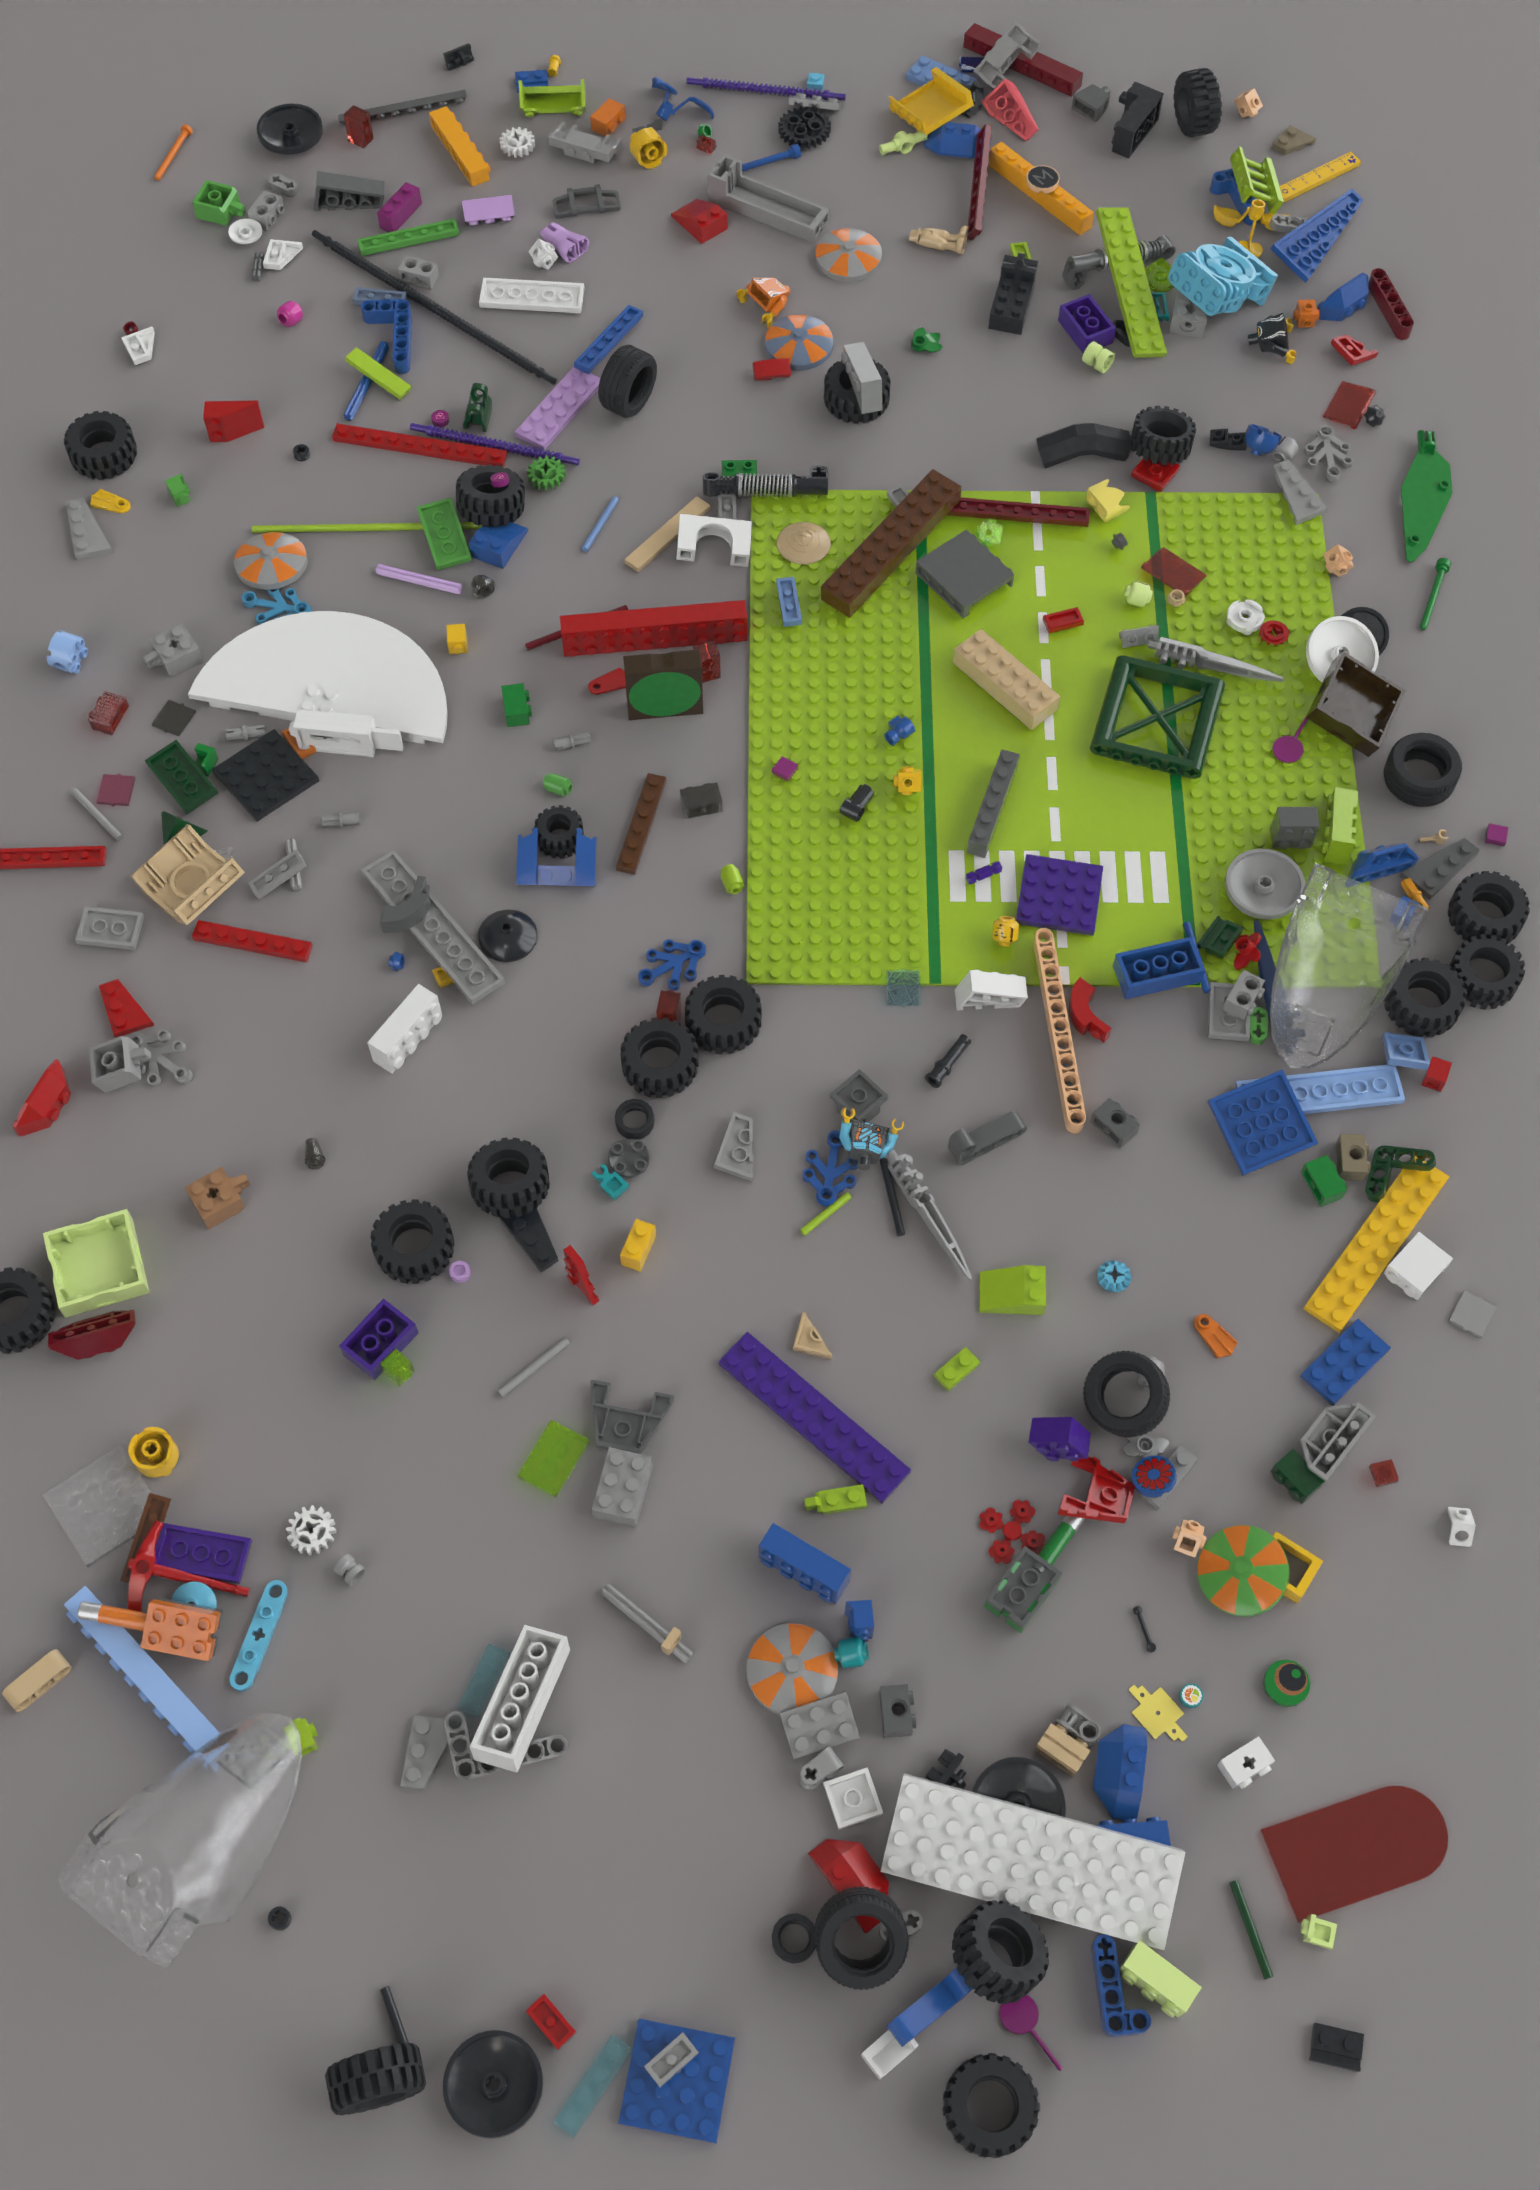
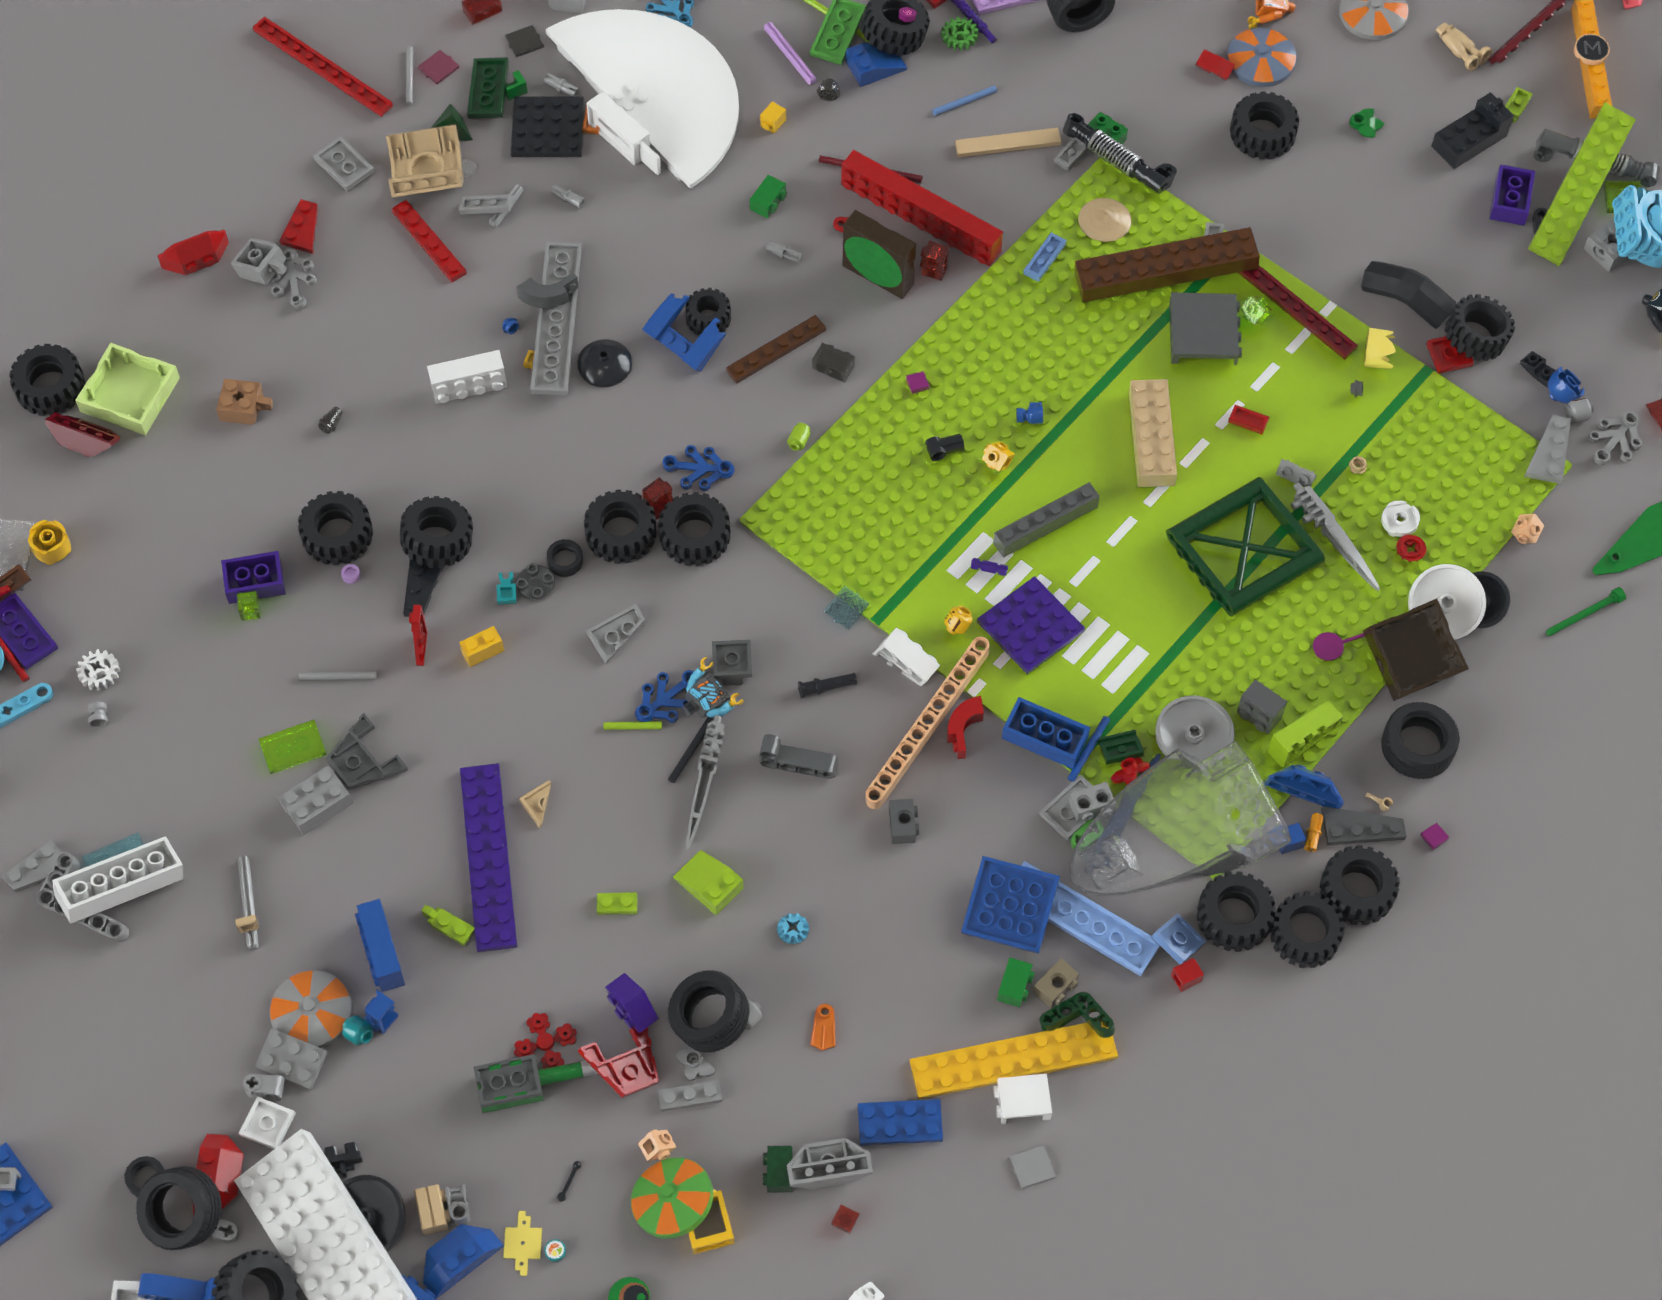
camera: 40 degrees right, 0 degrees up
(557, 784) = (742, 277): bright green brick -> none
(735, 532) = (1026, 150): white arch -> none
(863, 376) = (1266, 116): light grey wedge -> none
(892, 1724) = (350, 1080): dark grey brick -> none
(1098, 357) = (1495, 229): yellowish green wheel -> none
(1138, 594) = (1328, 440): yellowish green head -> none
(1154, 1476) = (675, 1084): tile -> none
(1156, 295) = (1588, 230): teal tile -> none
(1173, 571) = (1380, 443): clear red piece -> none

